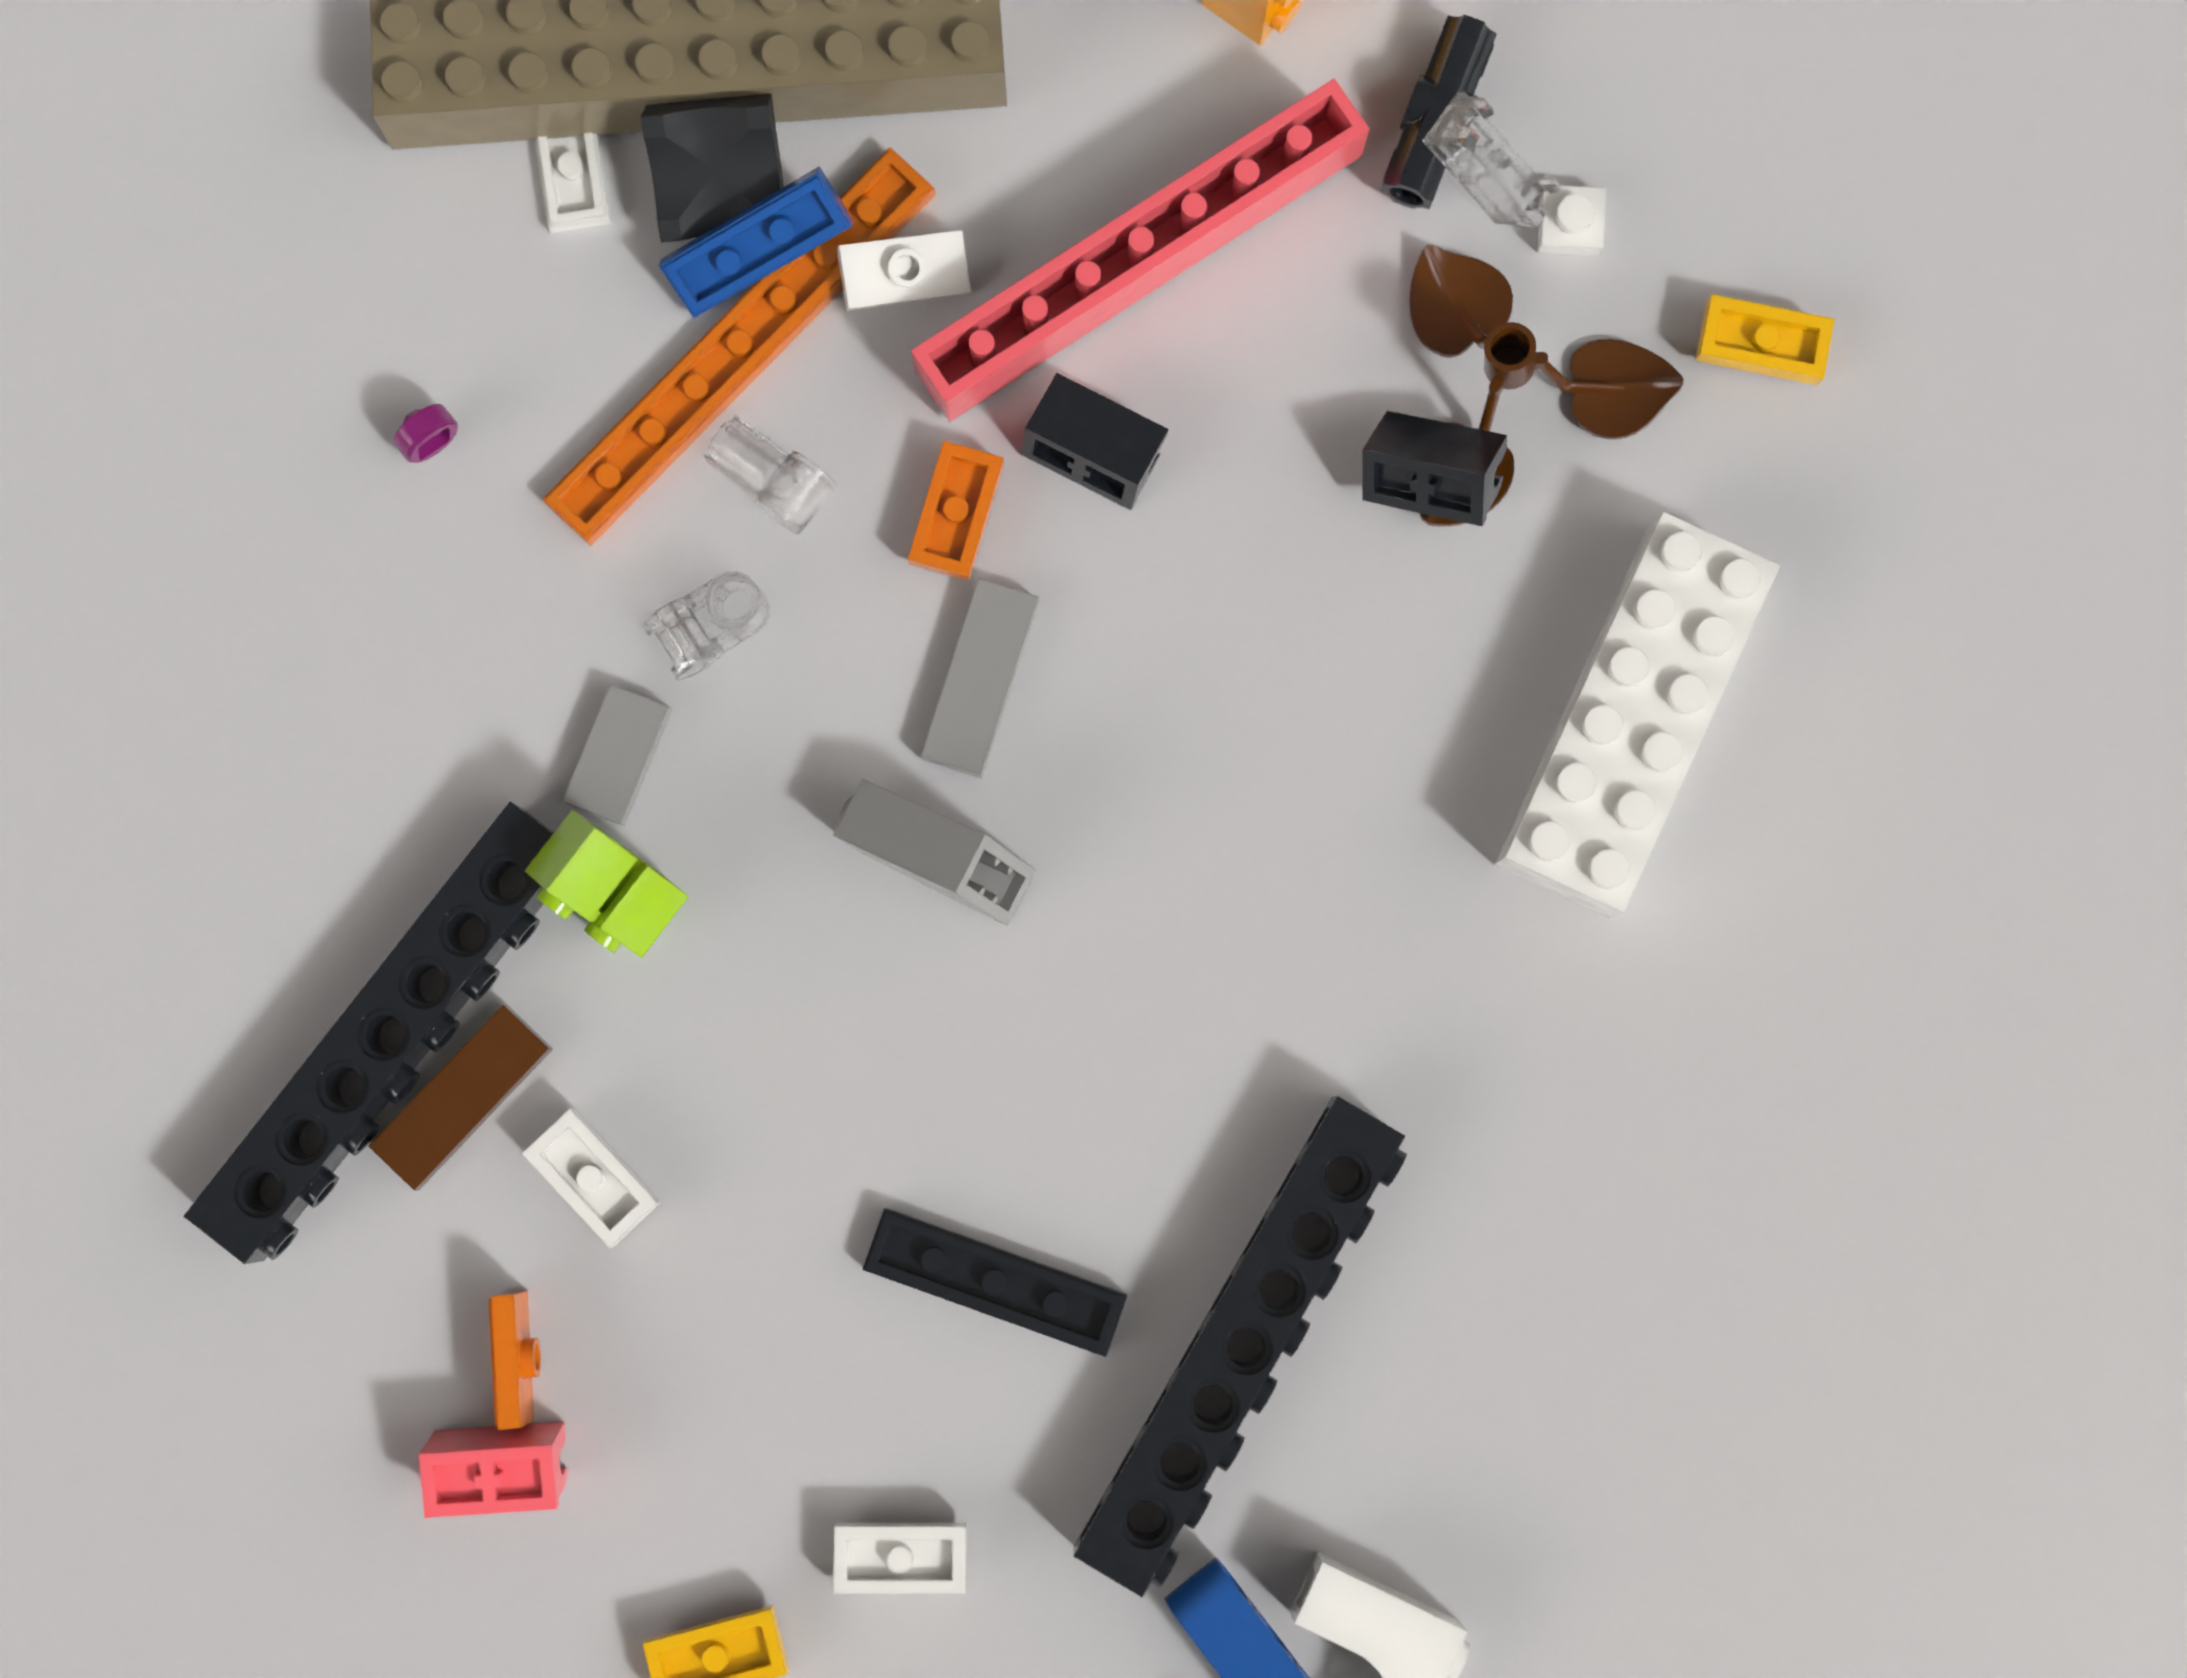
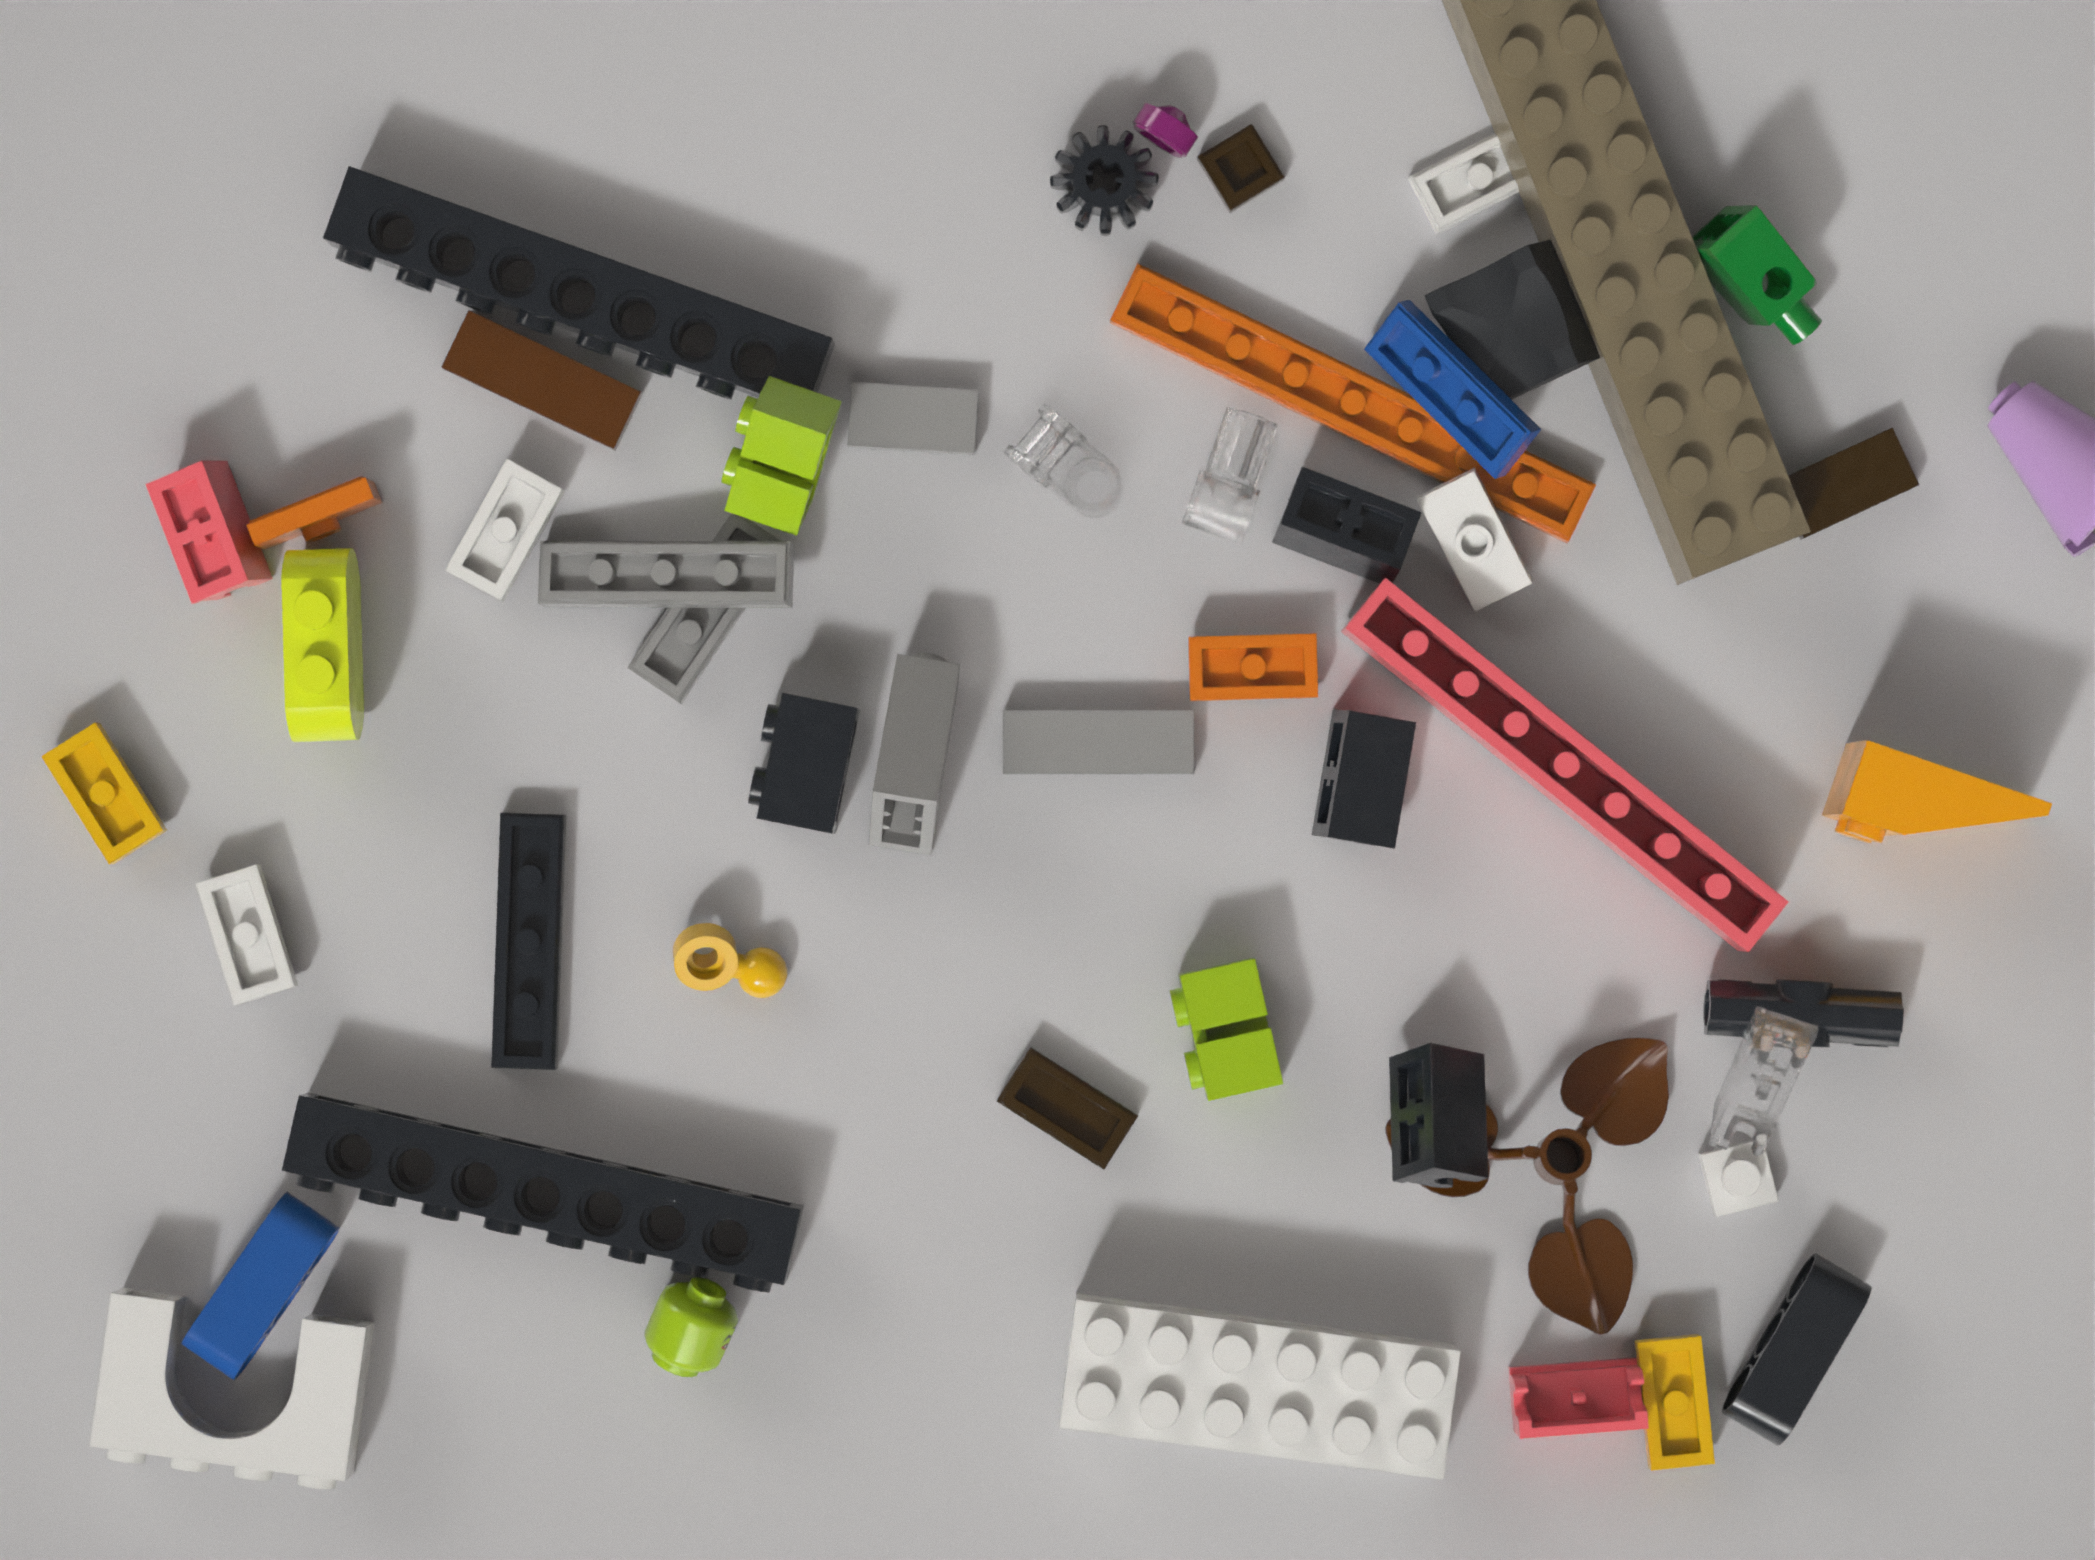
camera: 75 degrees right, 5 degrees up
(434, 494) = (1109, 159): none -> black gear
(487, 379) = (1240, 168): none -> dark brown tile
(640, 1391) = (322, 645): none -> neon yellow brick
(684, 1035) = (666, 574): none -> light grey tile
(730, 1007) = (690, 637): none -> light grey tile
(853, 382) = (1346, 526): none -> black hinge
(910, 957) = (805, 762): none -> black brick
(1094, 1068) = (758, 971): none -> yellow plate
(1290, 641) = (1228, 1030): none -> lime piece
(1316, 816) = (1067, 1108): none -> dark brown tile
(1418, 1240) = (691, 1327): none -> lime head
(1735, 426) = (1577, 1398): none -> coral hinge
(1749, 214) = (1796, 1349): none -> black beam

